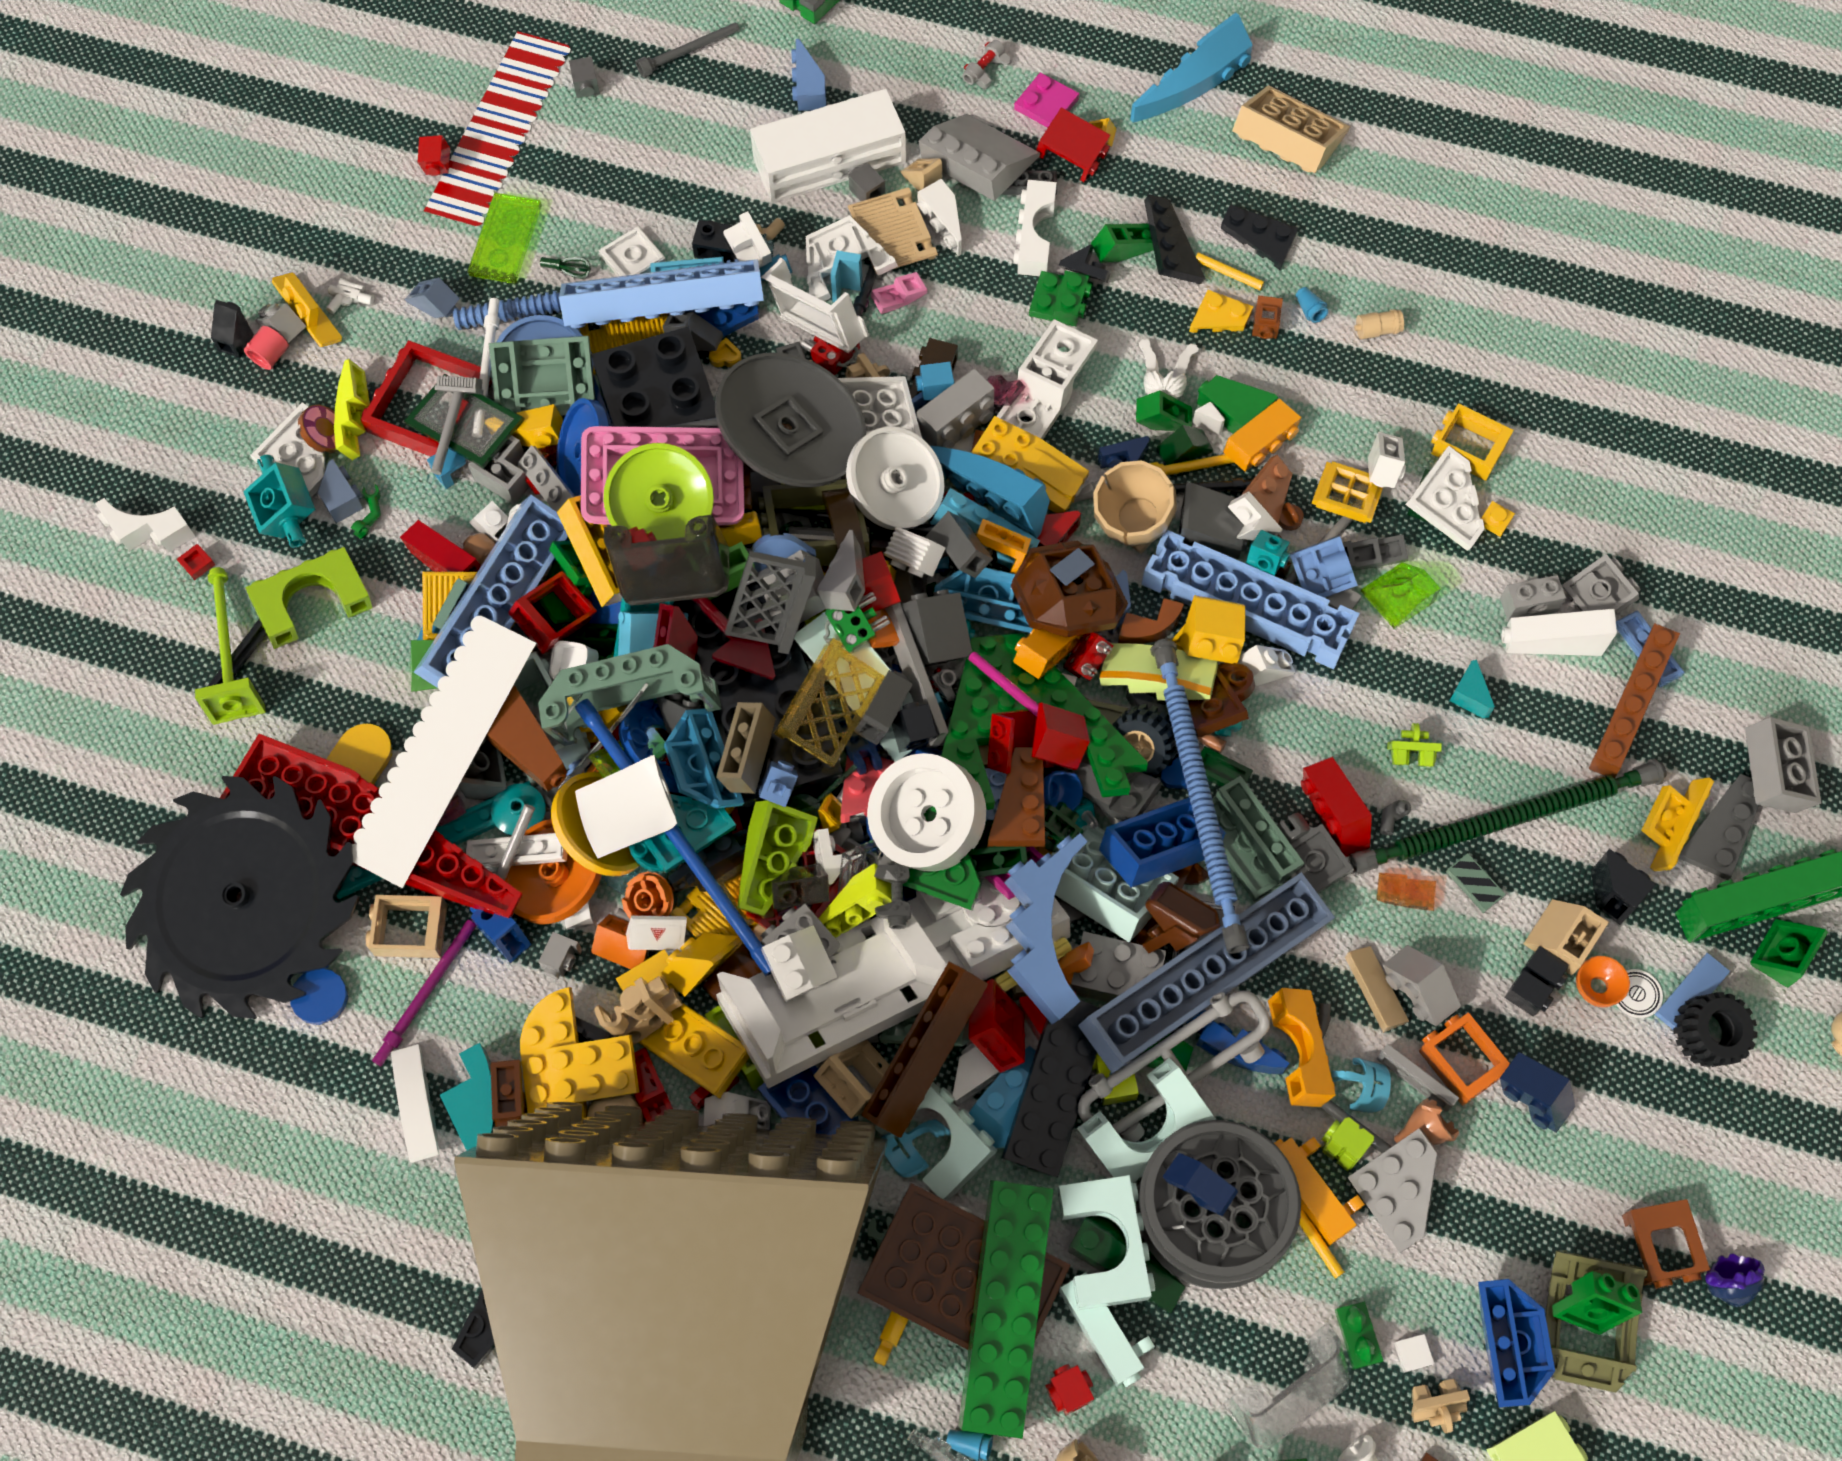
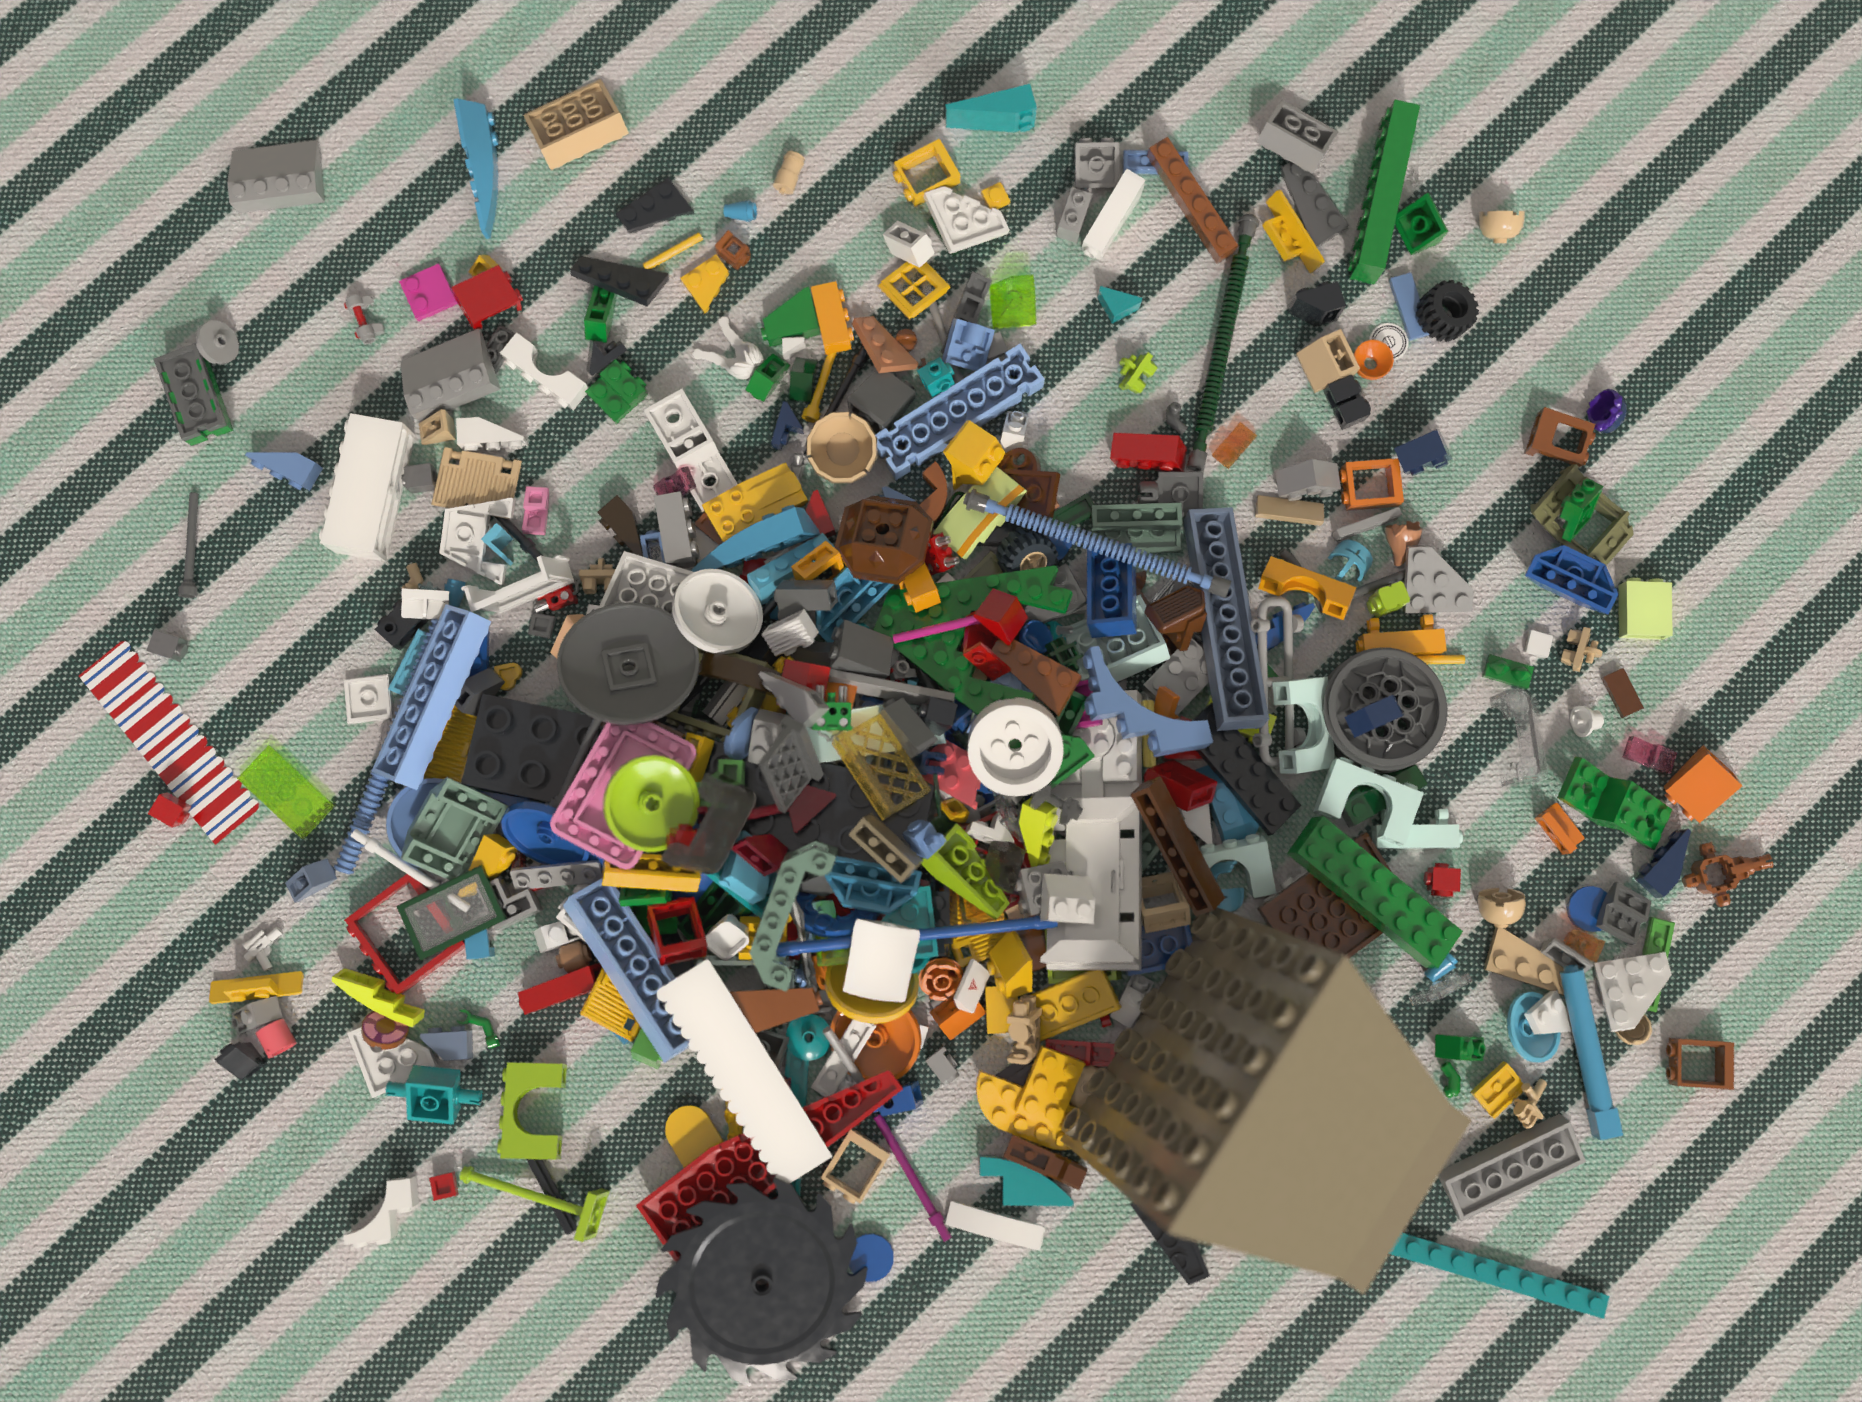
camera: 60 degrees left, 15 degrees up
(450, 603) = (620, 1004): sand green tile -> none
(458, 386) = (422, 901): light grey piece -> none
(561, 265) = (340, 761): dark green piece -> none
(934, 379) = (642, 530): dark azure brick -> none
(1072, 566) = (875, 526): sand blue sticker -> none
(1253, 517) = (900, 368): white slope -> none
(1475, 883) = (1254, 395): sand green tile -> none
(1583, 467) = (999, 111): none -> teal slope

